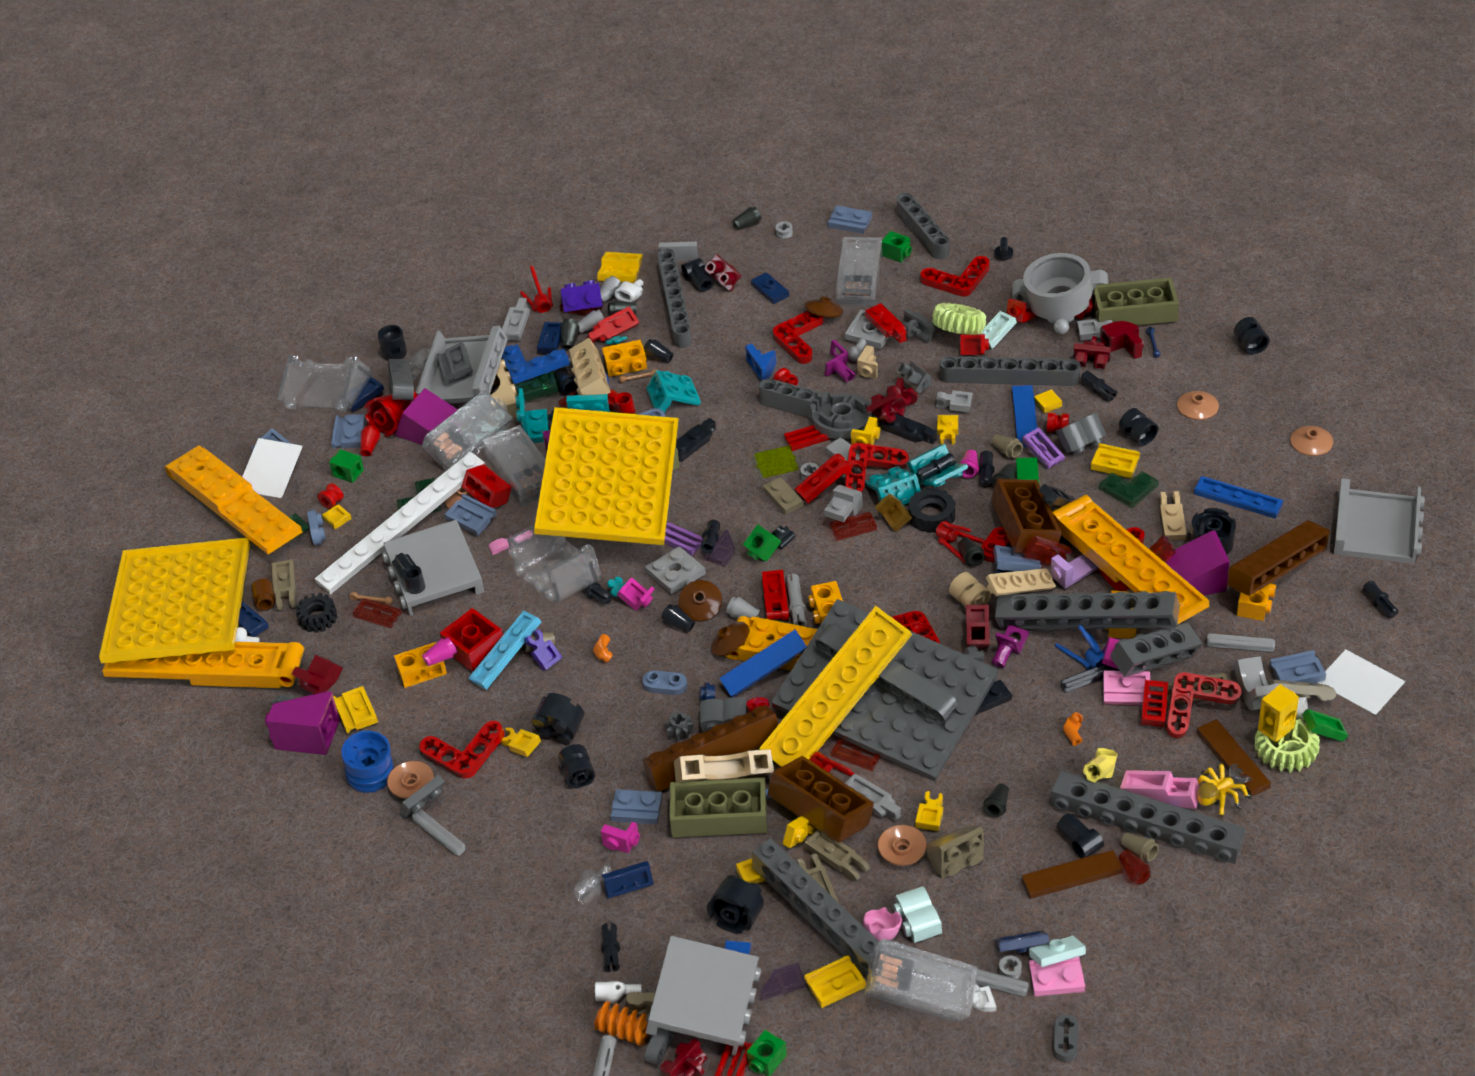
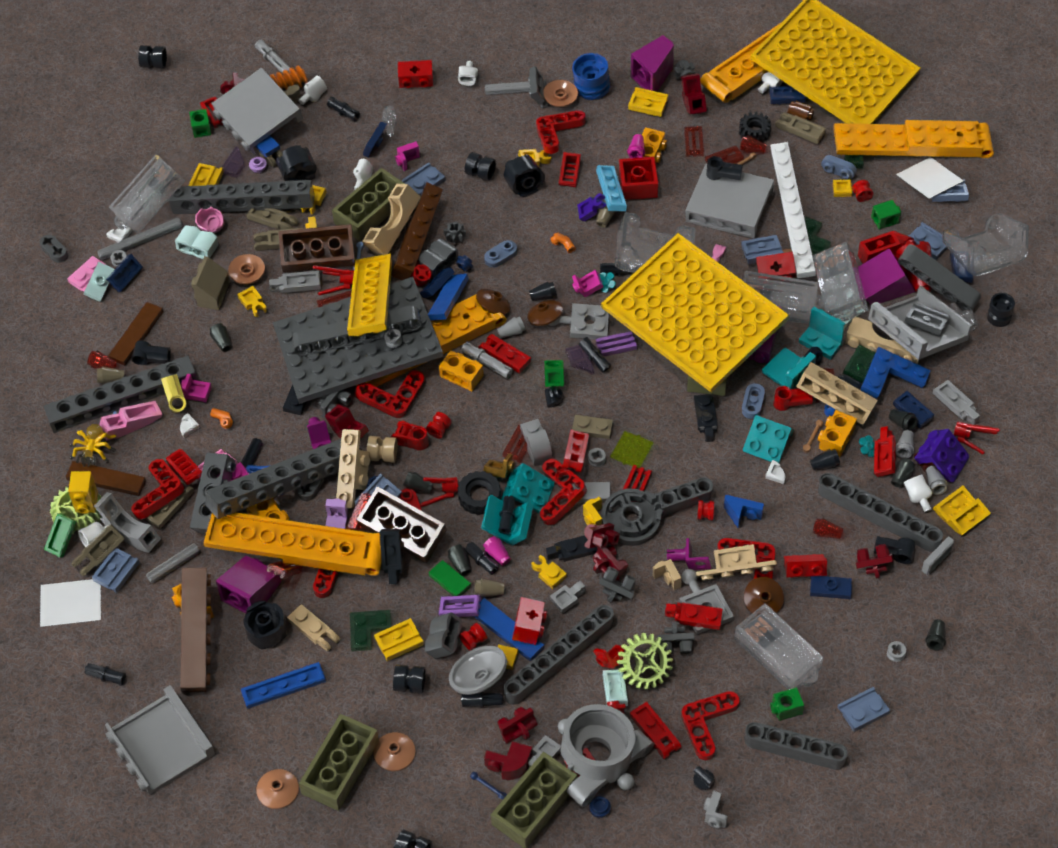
camera: 130 degrees right, 10 degrees up
(343, 601) = (752, 145): none -> clear red cone
(377, 649) = (694, 152): none -> clear red tile
(397, 440) = (874, 246): none -> red brick
(453, 877) = (467, 74): none -> white piece
(492, 711) = (573, 158): none -> red slope
(500, 919) = (415, 74): none -> red brick
(684, 852) = (362, 172): none -> white piece
(700, 373) = (775, 473): none -> white tile
(723, 315) = (825, 528): none -> clear red cone
(754, 689) = (437, 283): none -> dark blue plate
(767, 961) = (258, 164): none -> lavender plate
(769, 304) = (805, 565): none -> red bracket
(814, 328) = (734, 560): none -> tan bracket
(900, 579) = (438, 425): none -> red wheel
(933, 587) = (408, 435): none -> red piece
(999, 293) = (655, 729): none -> red plate
(1007, 397) = (529, 620): none -> brick
(1020, 231) = (712, 817): none -> light grey bracket
(1071, 763) = (195, 389): none -> dark pink bracket
(1087, 381) = (478, 670): none -> light grey dish
(1113, 744) = (188, 425): none -> white tile
(1250, 410) = (339, 762): none -> olive brick

